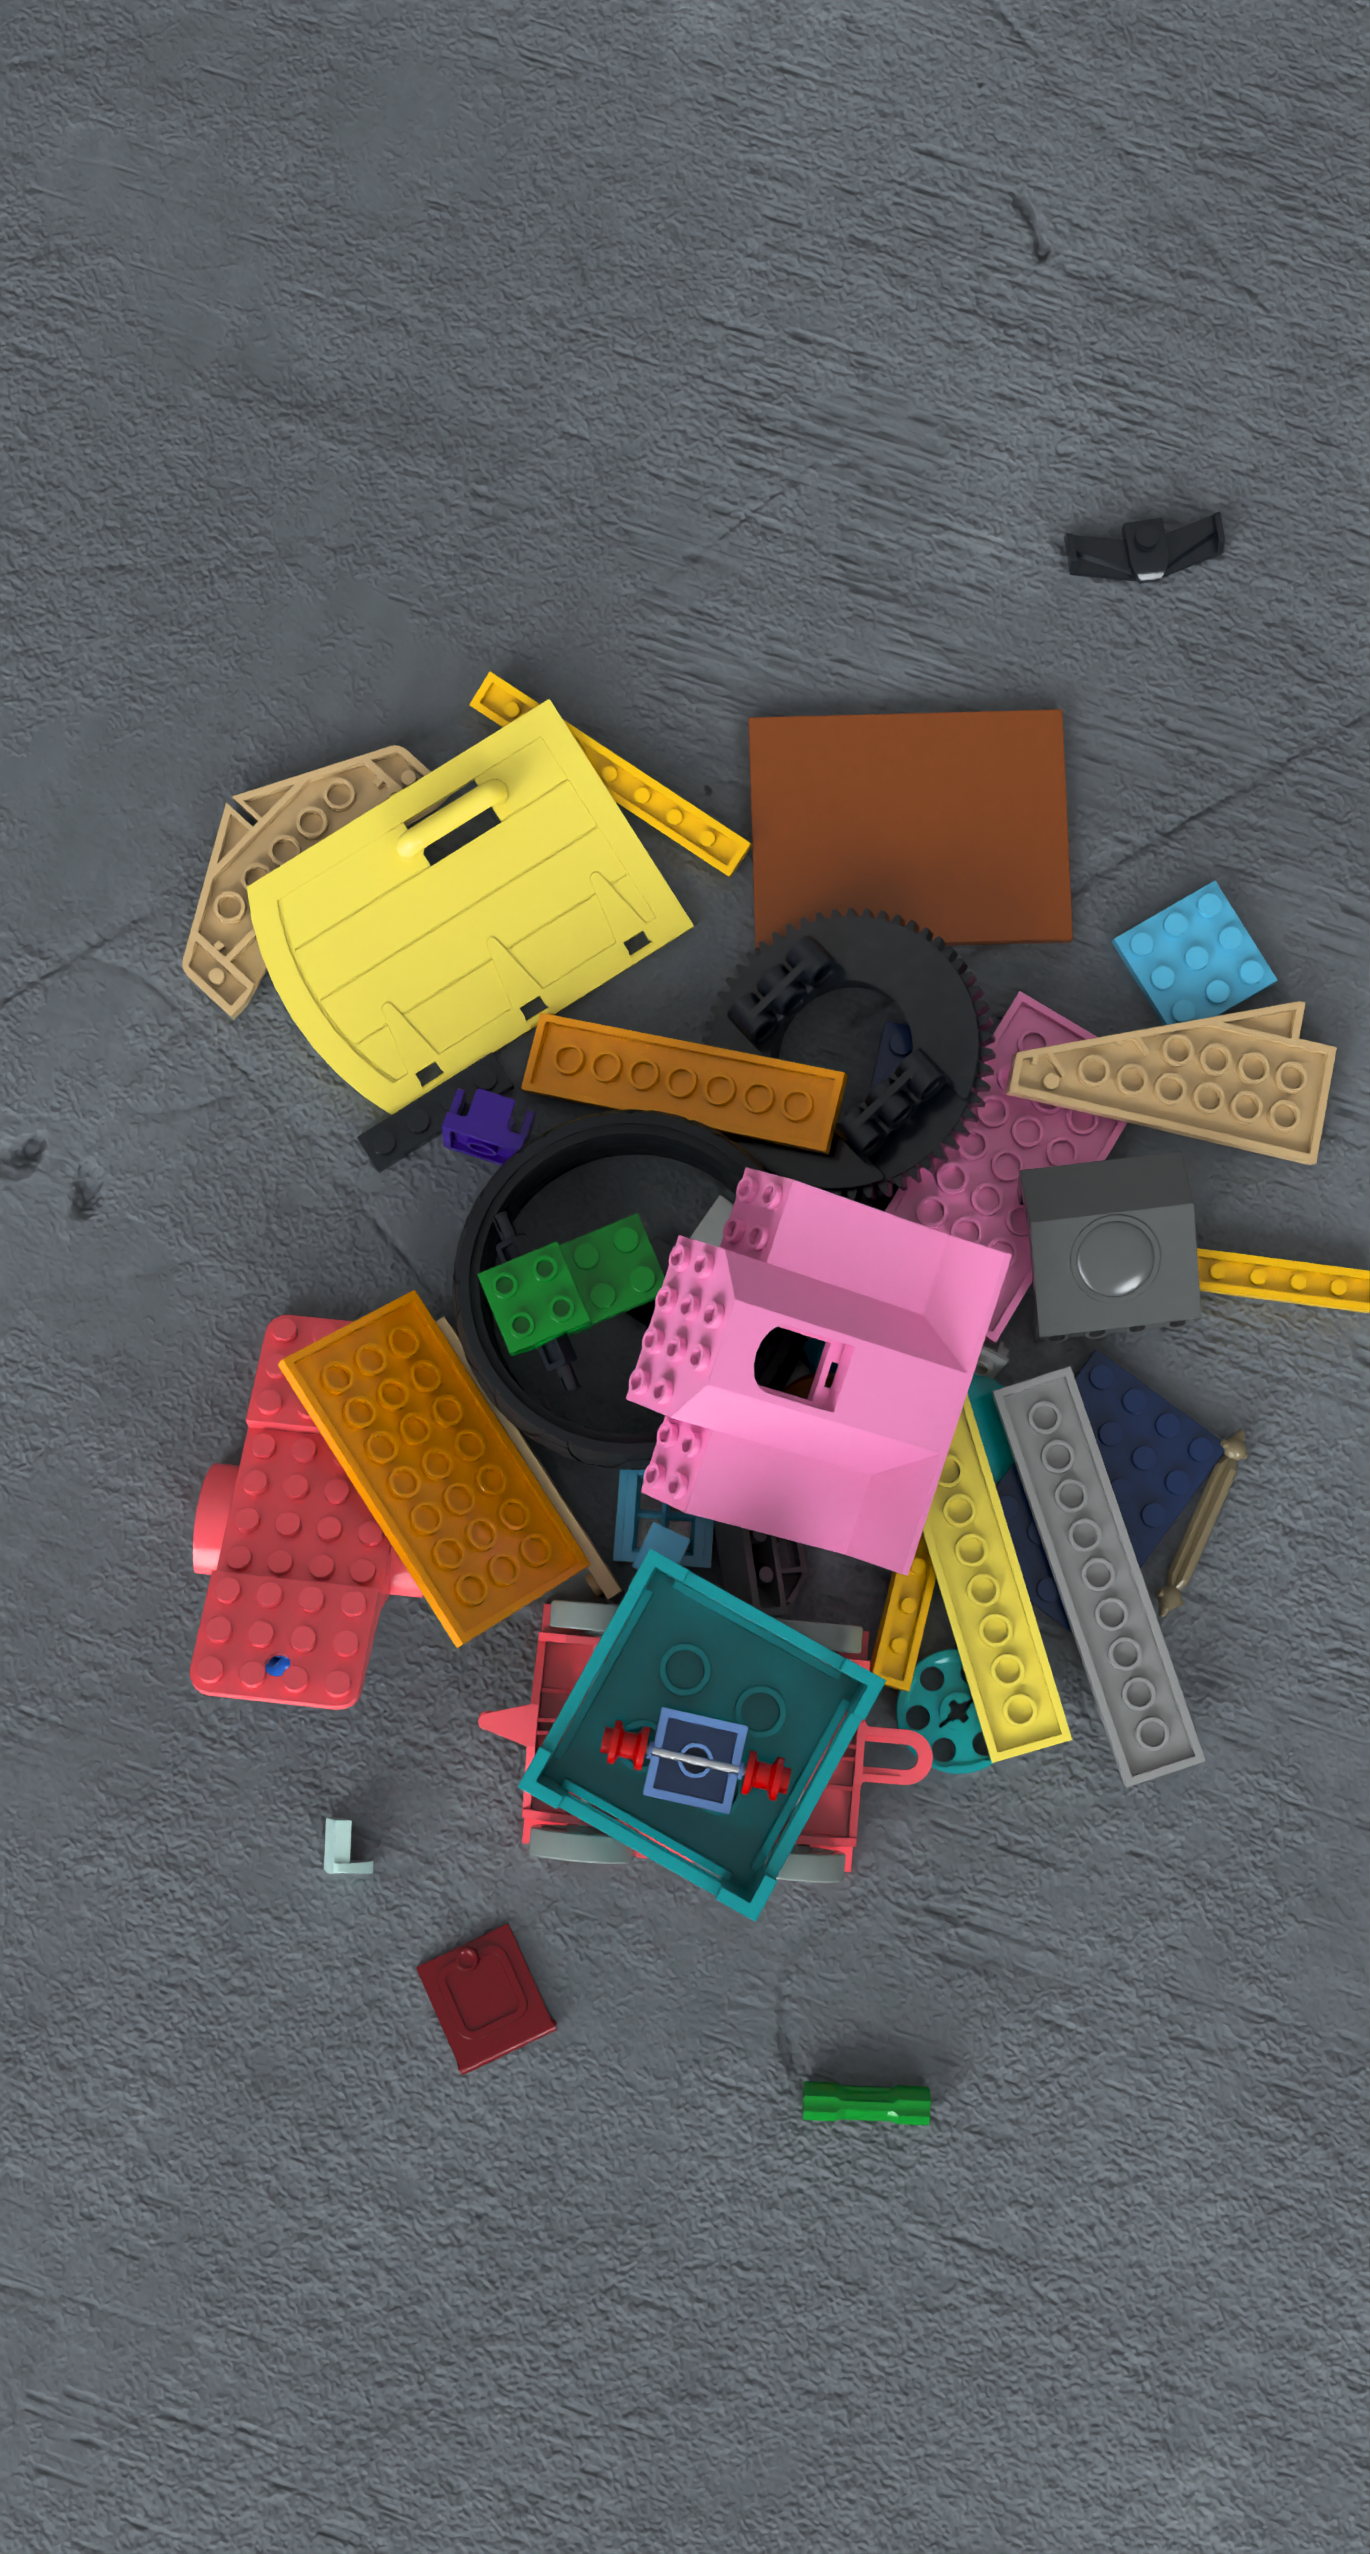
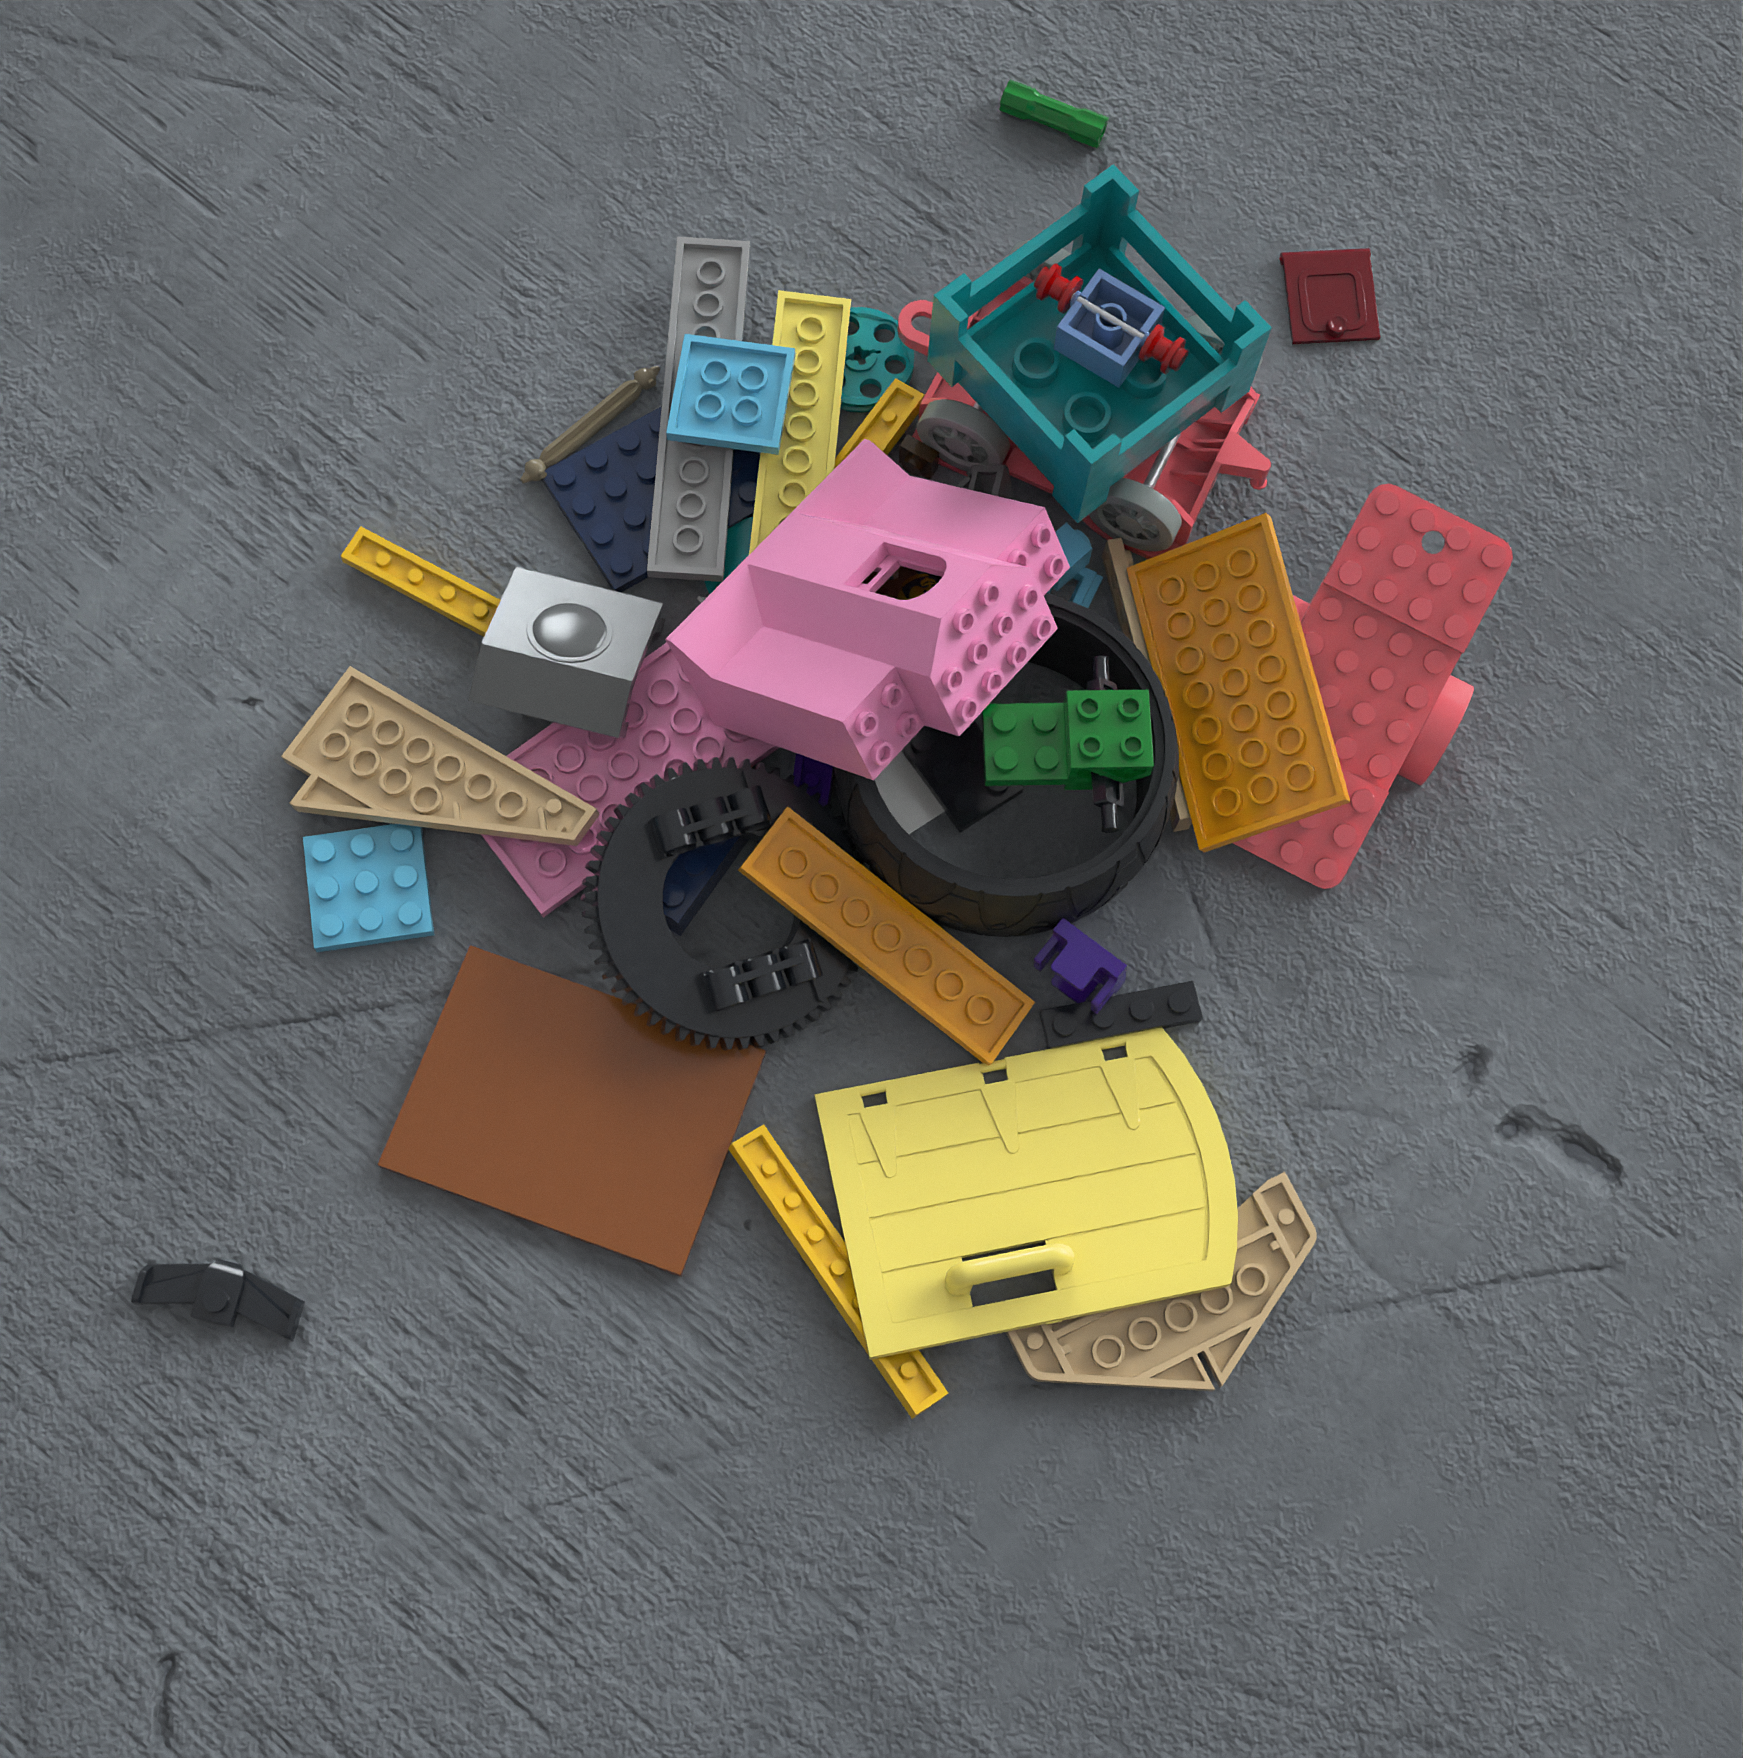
camera: 165 degrees left, 10 degrees down
(338, 1849) = (1418, 435): light aqua tile -> none
(851, 1614) = (918, 457): none -> dark brown plate
(1068, 1588) = (731, 394): none -> medium azure plate

